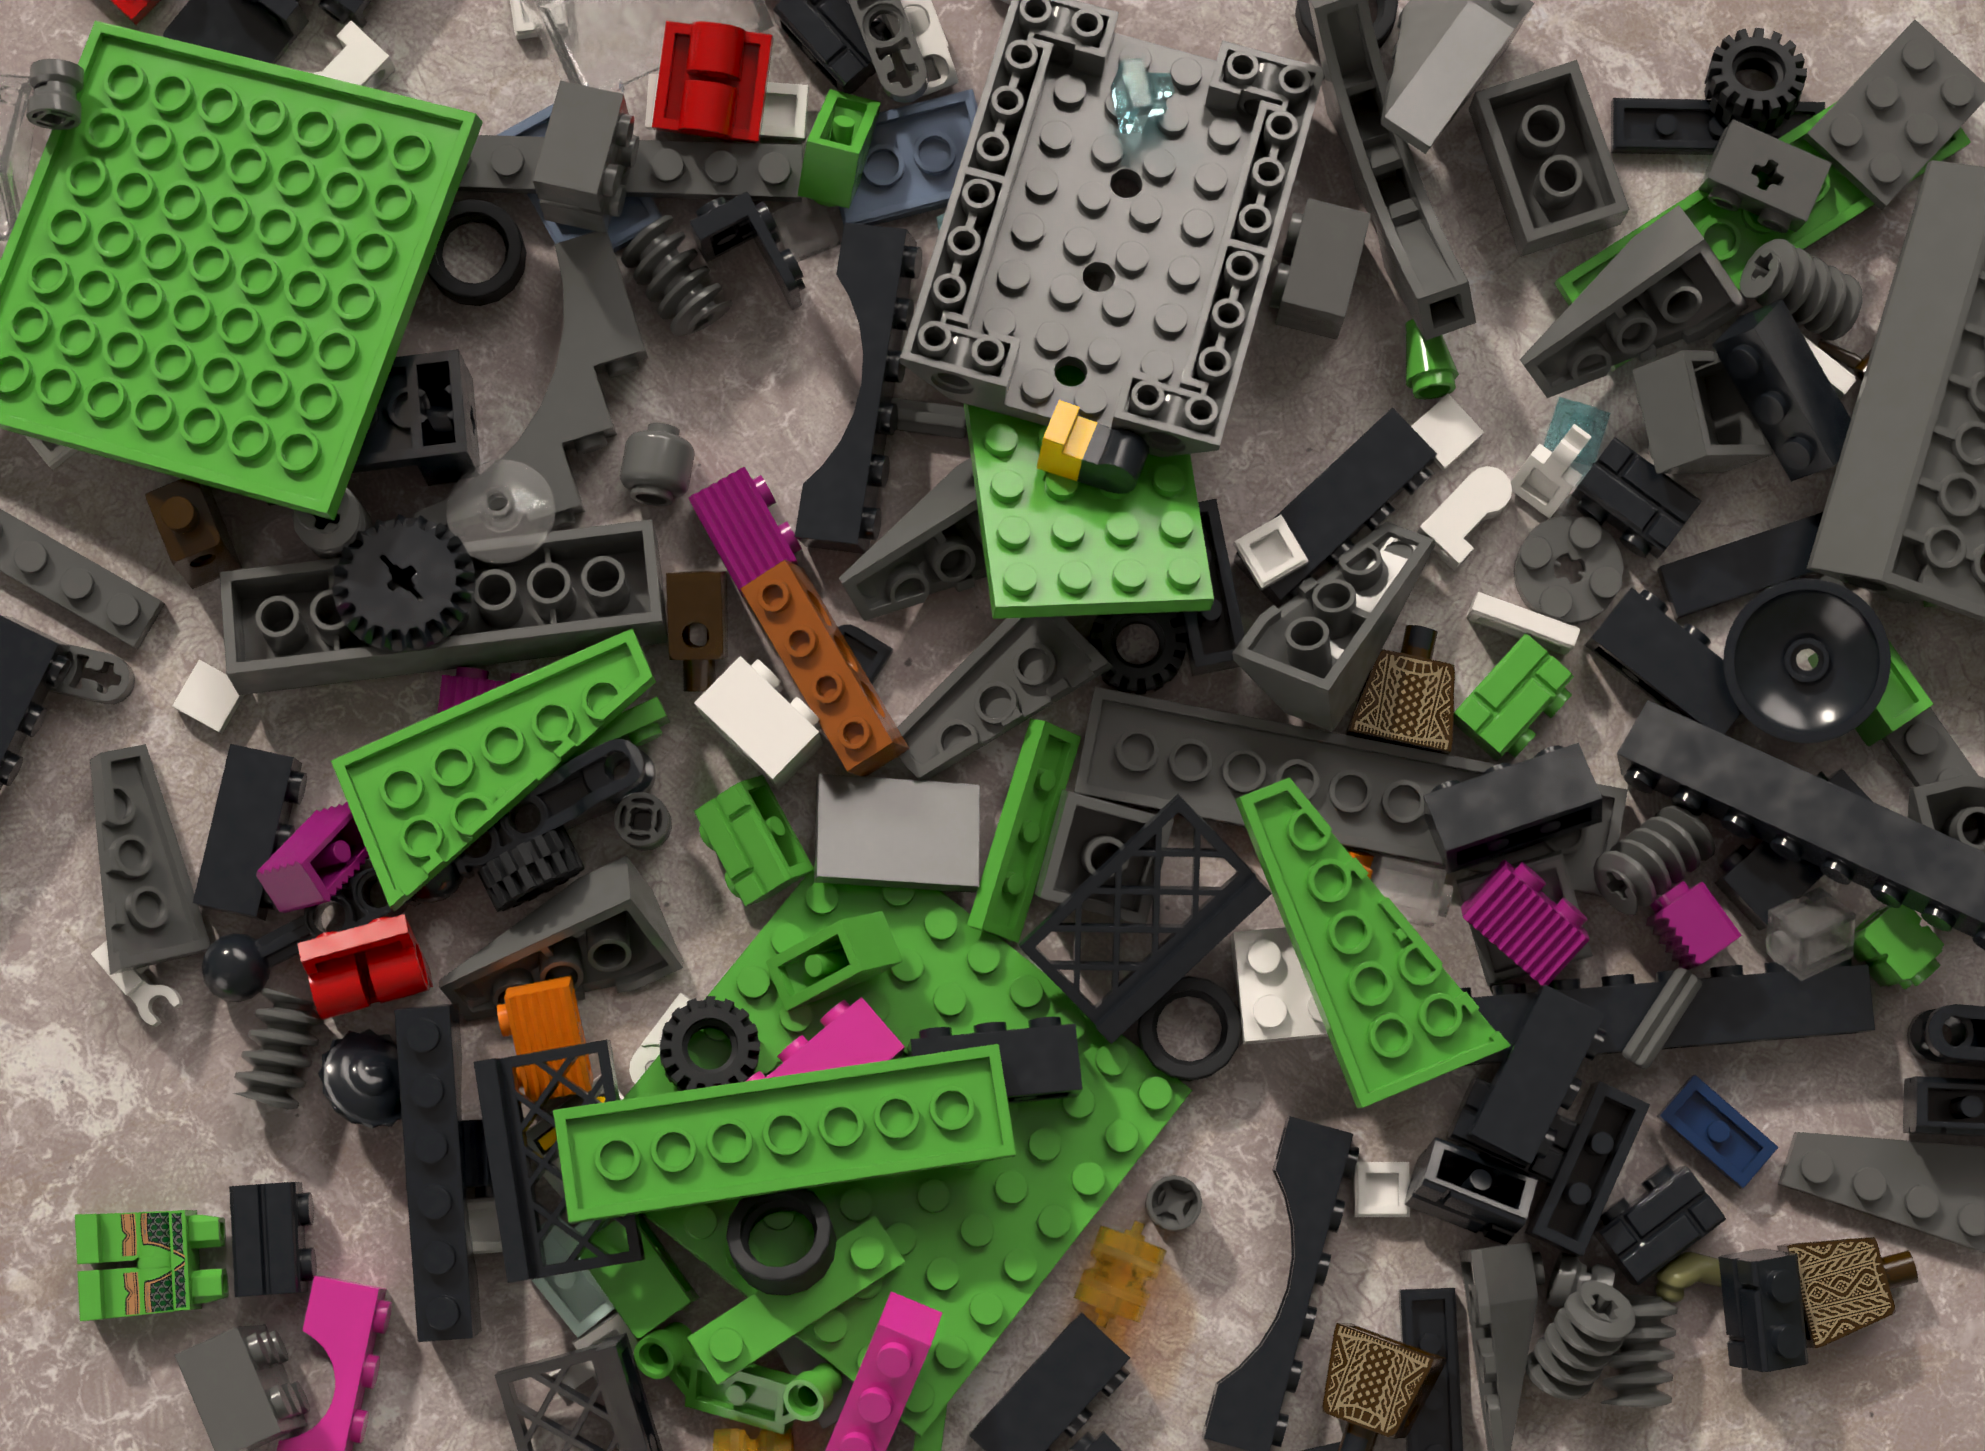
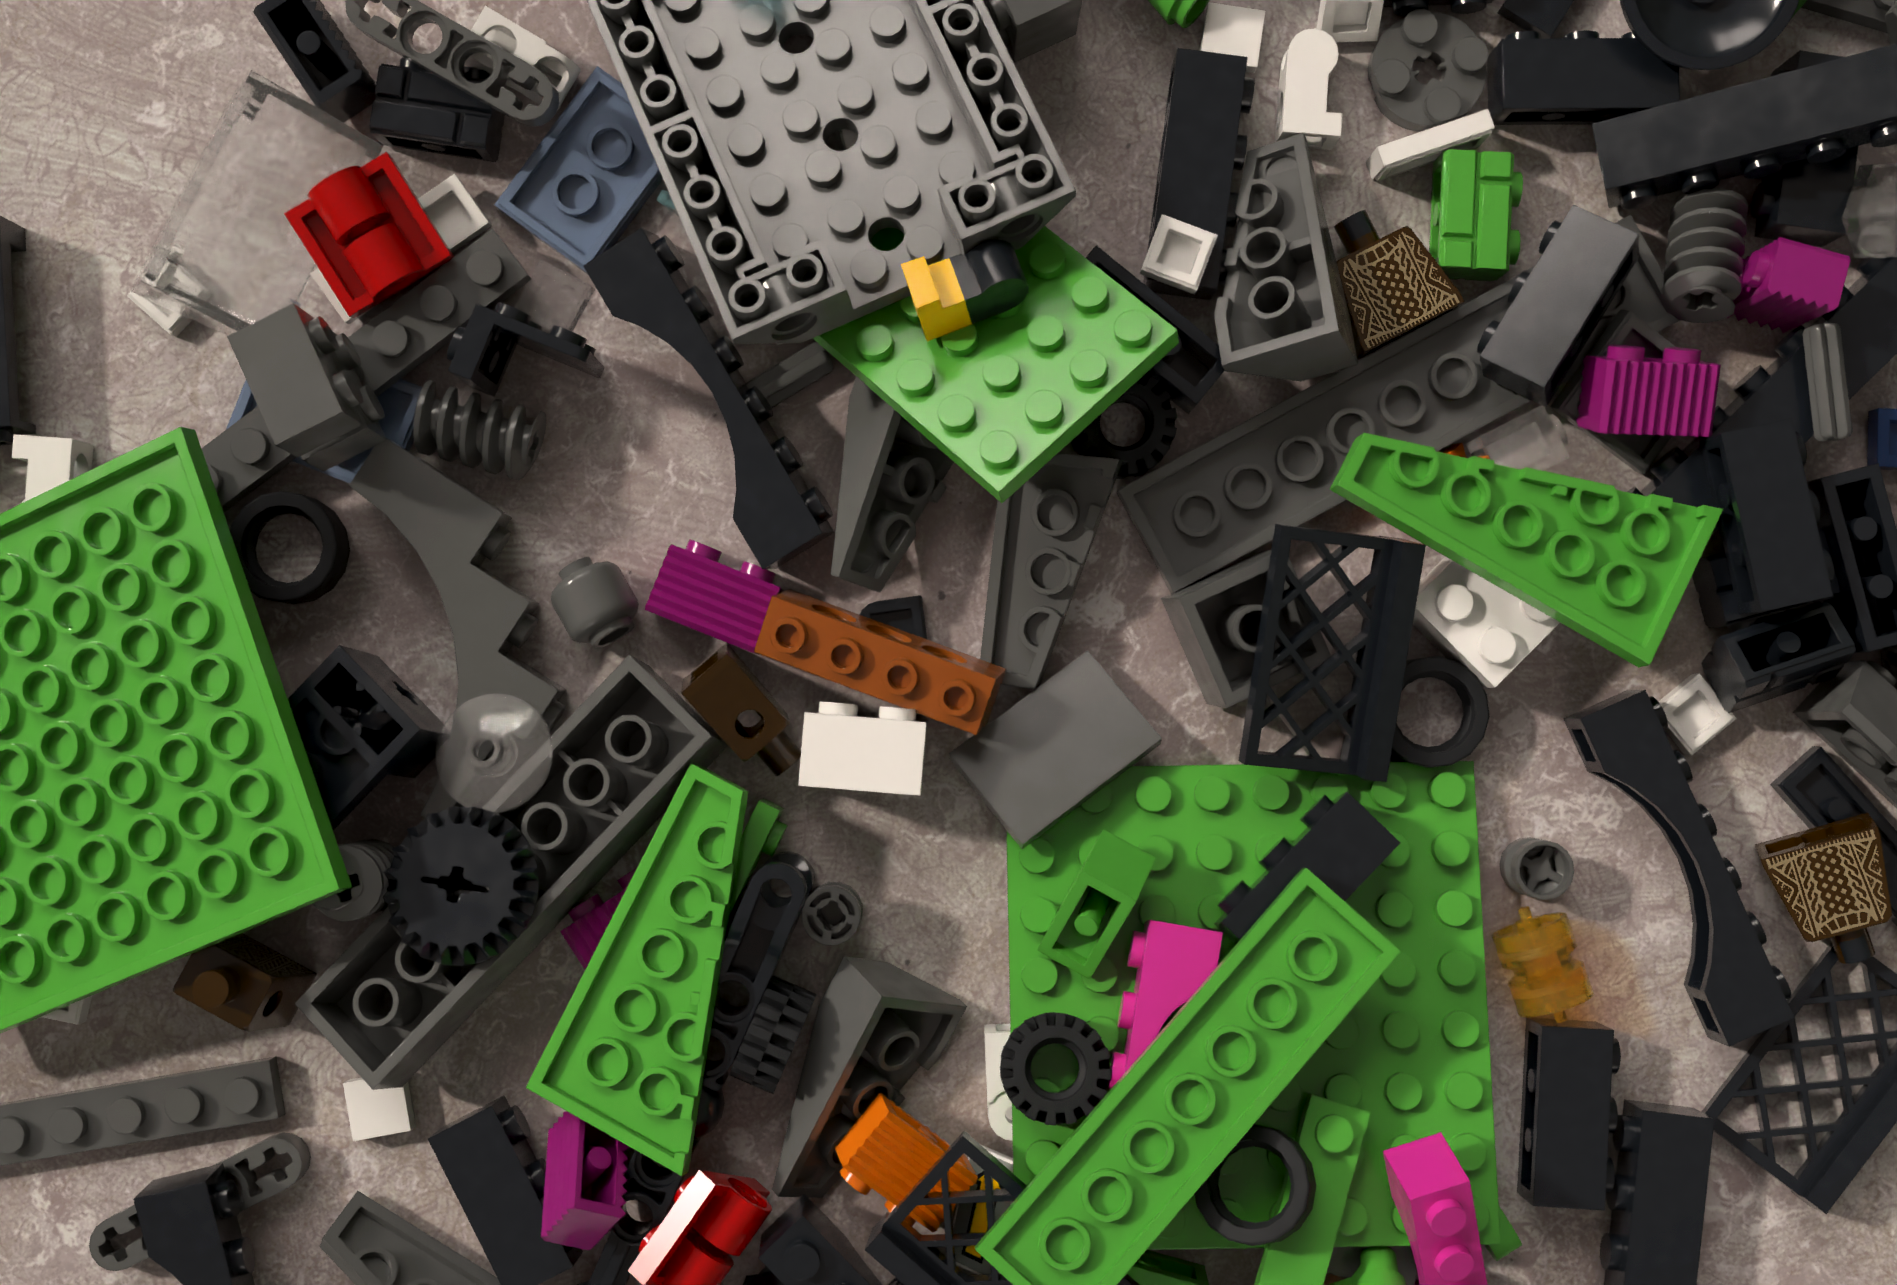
camera: 40 degrees left, 5 degrees up
(753, 841) = (940, 854): bright green brick -> none
(838, 149) = (525, 207): bright green slope -> none
(1024, 830) = (1157, 659): bright green plate -> none

